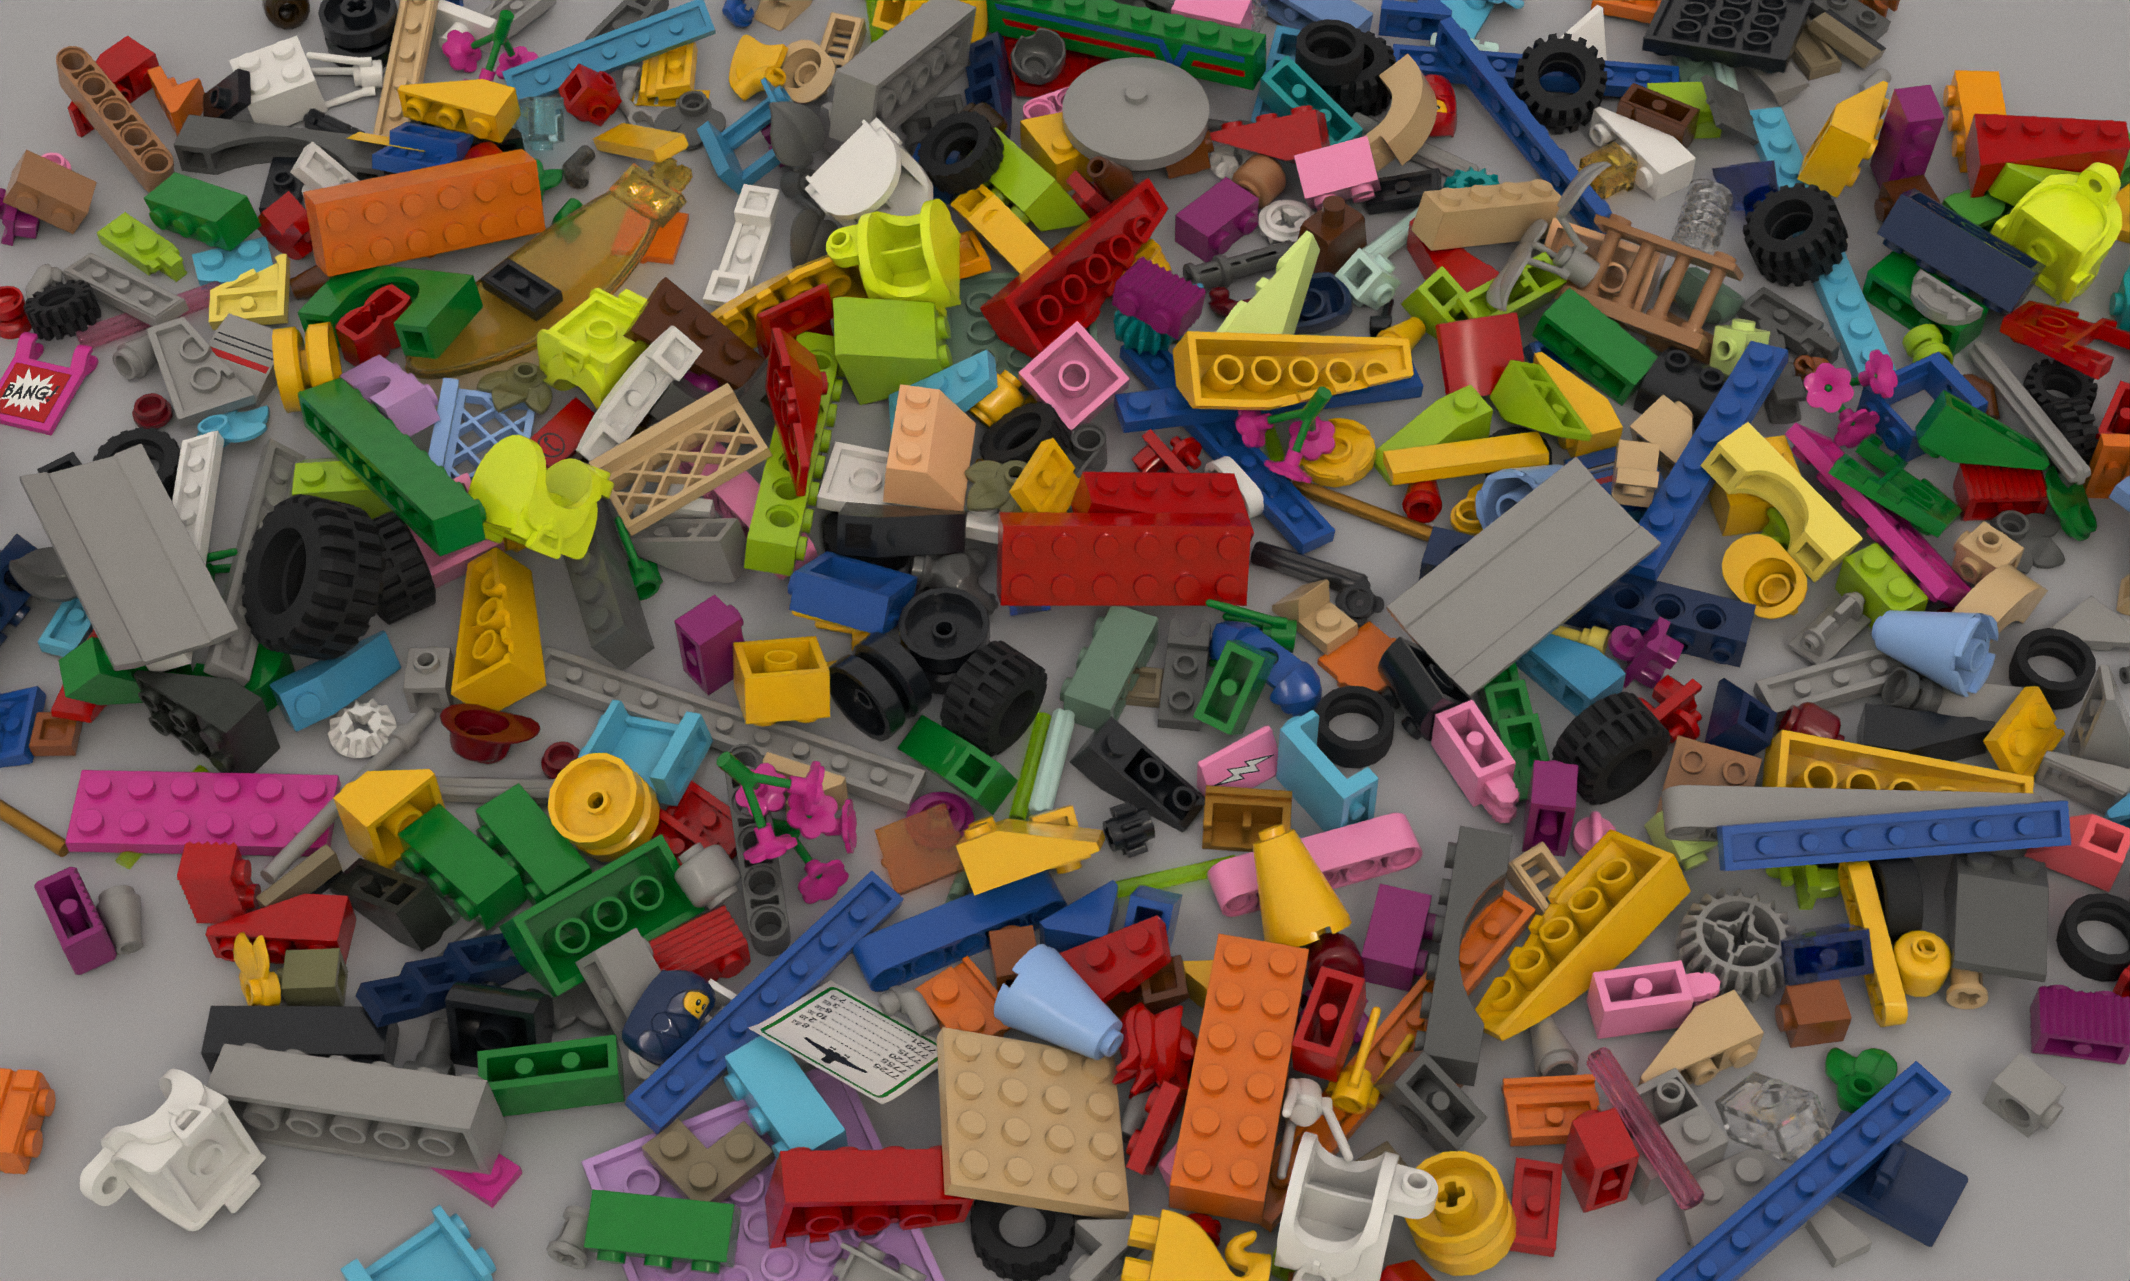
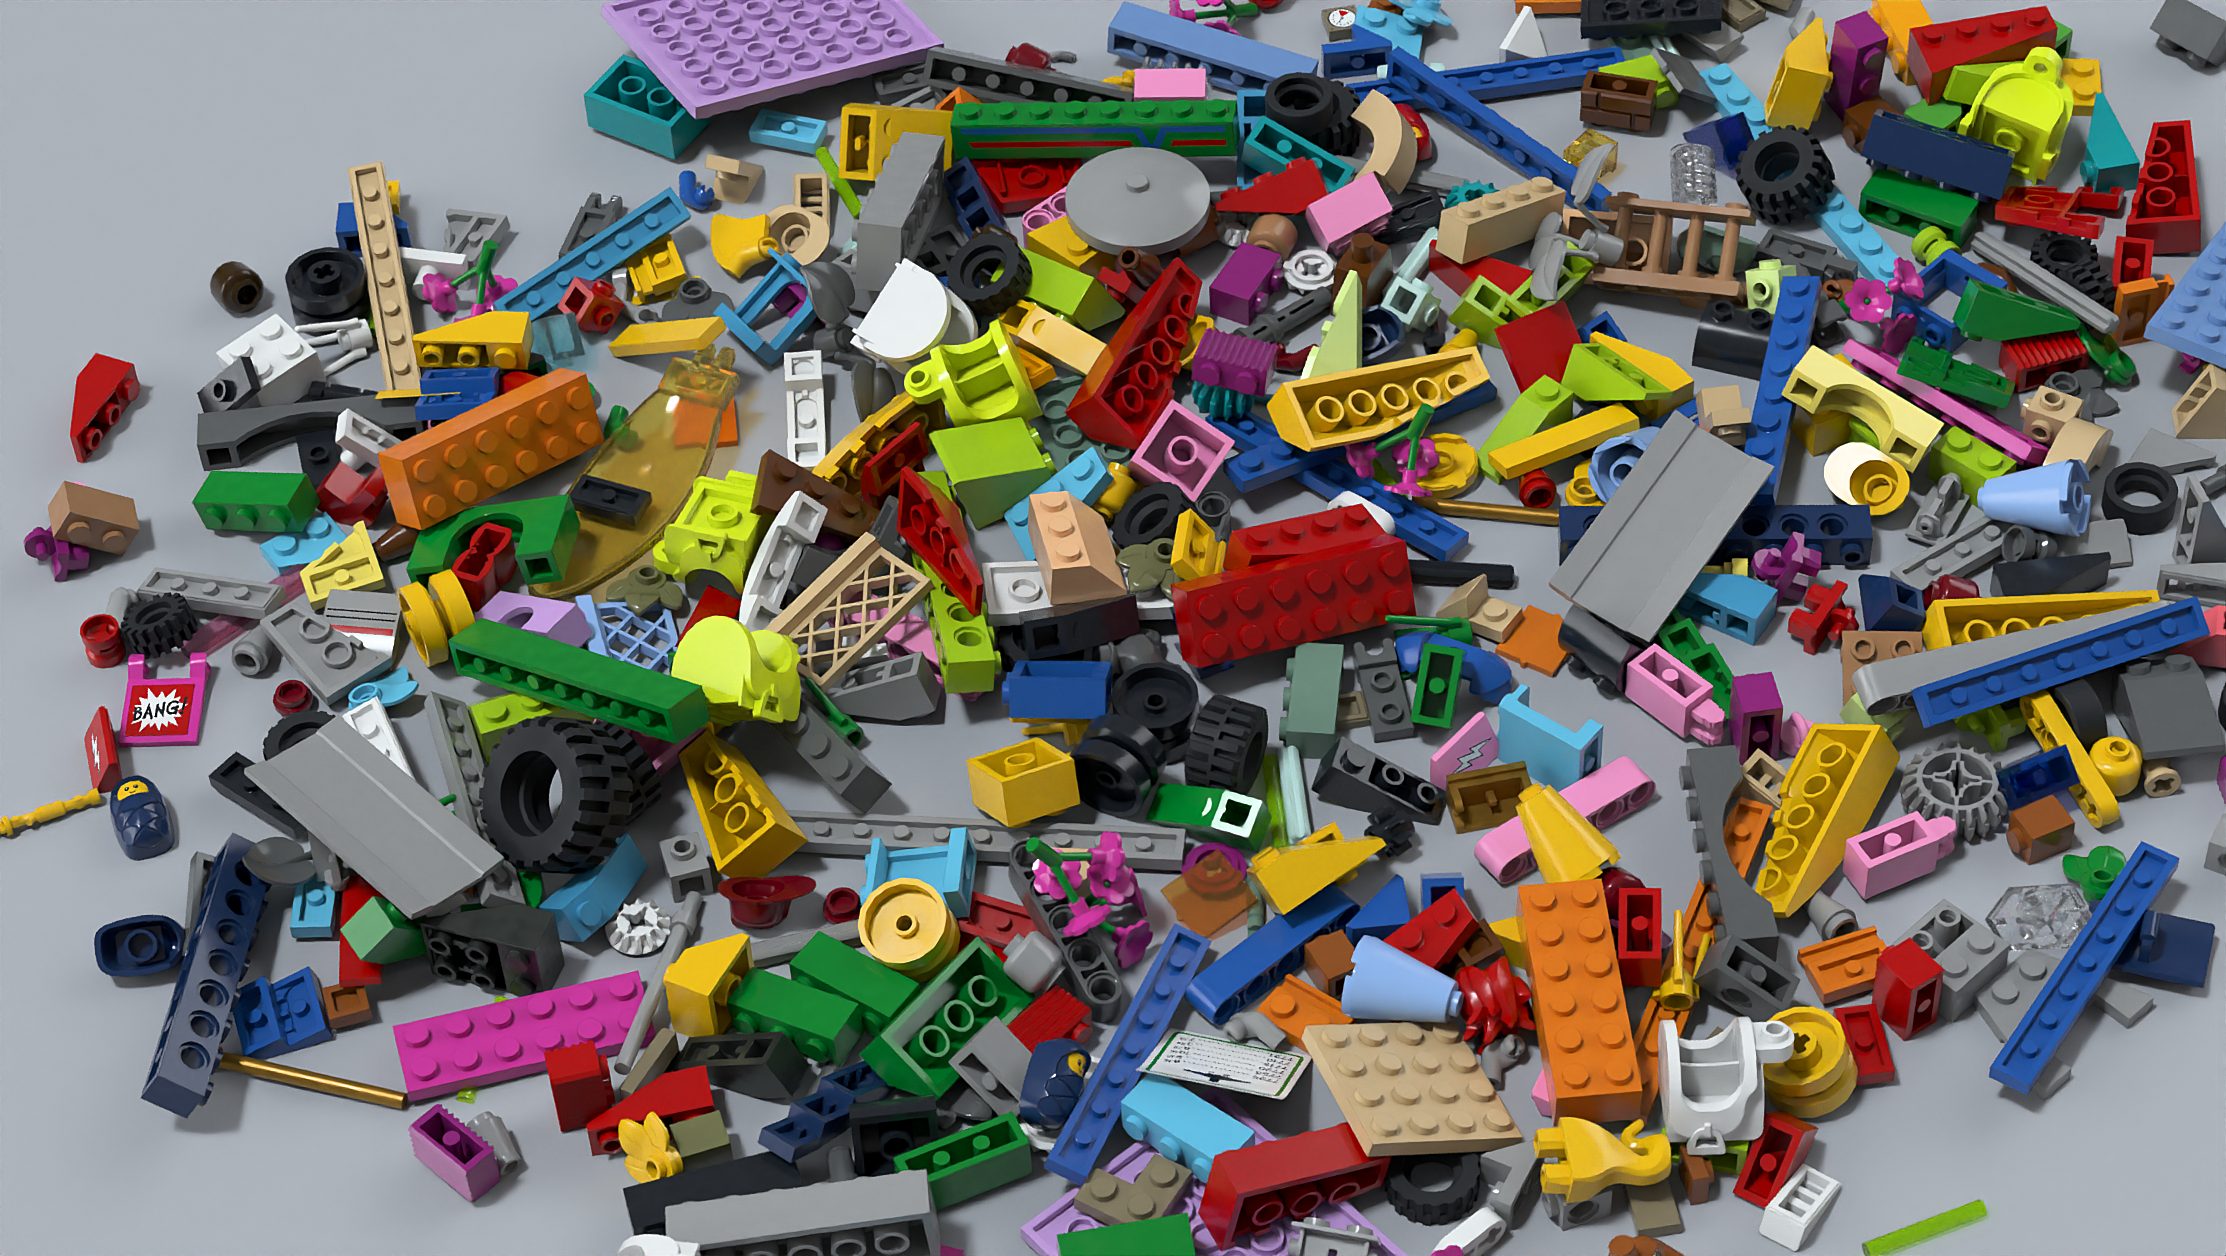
camera: 15 degrees left, 5 degrees down
(113, 117) = (127, 435): medium nougat beam -> none
(142, 247) = (204, 551): lime hinge -> none
(177, 99) = (171, 407): orange slope -> none
(574, 168) = (603, 377): clear smoke arm -> none
(707, 642) = (941, 768): magenta brick -> none
(1039, 57) = (1019, 170): dark grey hair -> none
(1149, 1143) = (1519, 1044): red plate -> none
(1158, 455) = (1293, 504): red hips -> none
(1168, 877) = (1442, 862): clear neon green bar -> none
(1303, 1108) = (1643, 1014): white plant -> none
(1355, 700) = (1564, 675): black tyre -> none
(1360, 590) = (1515, 579): black plate -> none
(1395, 937) = (1661, 857): magenta brick -> none
(1566, 57) = (1523, 61): black tyre -> none
(1594, 346) = (1641, 315): green brick -> none
(1614, 746) = (1794, 647): black tyre -> none
(1645, 1129) = (1939, 949): clear pink axle -> none
(1662, 160) = (1638, 135): white slope -> none
(1666, 425) = (1733, 367): tan slope -> none
(1710, 1040) = (1963, 872): tan slope -> none
(1942, 302) = (1936, 204): light grey tile -> none
(2024, 734) = (2136, 555): yellow plate -> none

